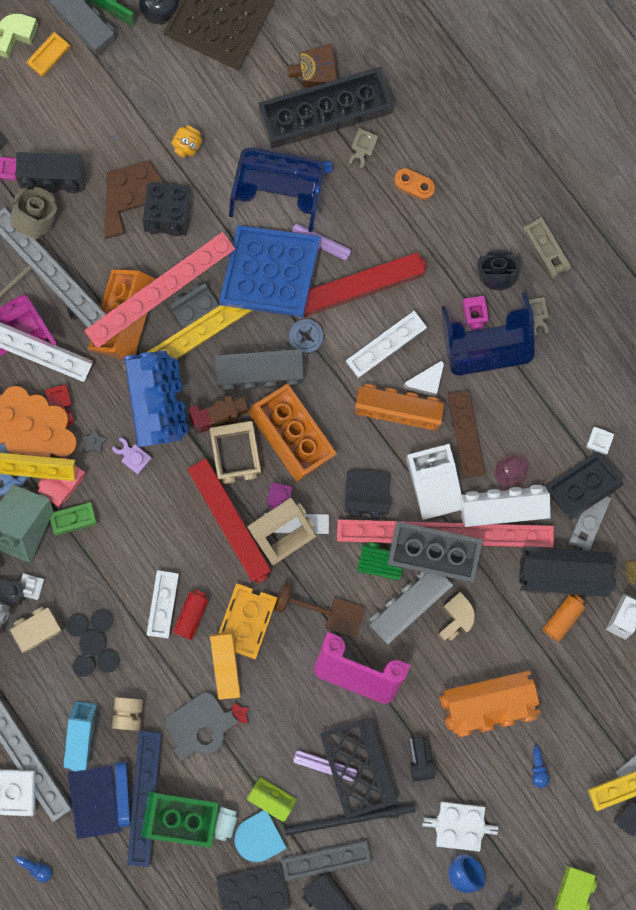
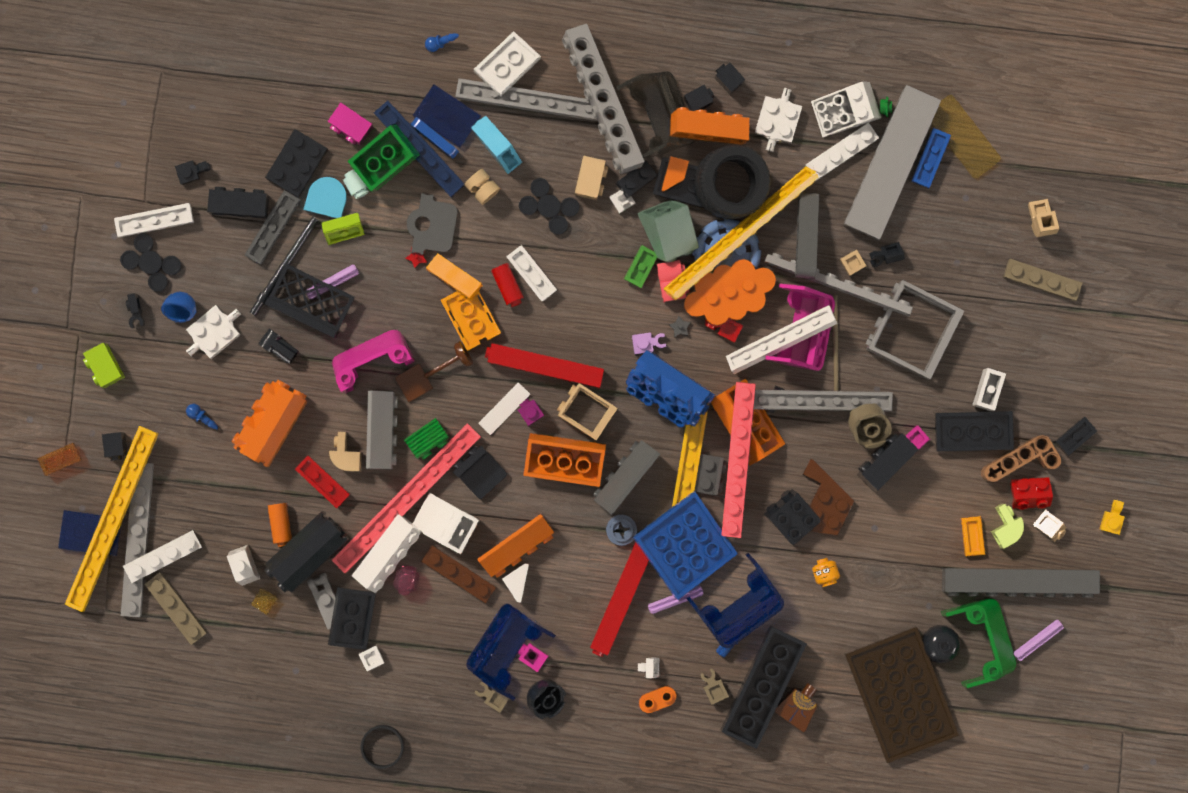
camera: 135 degrees right, 5 degrees up
(177, 877) = (350, 124): none -> dark pink brick
(218, 414) = (620, 424): reddish brown hips -> none
(275, 520) = (515, 395): tan window -> none
(386, 344) = (566, 577): white plate -> none
(394, 212) = (651, 667): none -> white tile
(434, 551) = (399, 478): dark grey slope -> none
(497, 616) = (322, 481): none -> red plate
(546, 247) = (532, 747): dark tan plate -> none

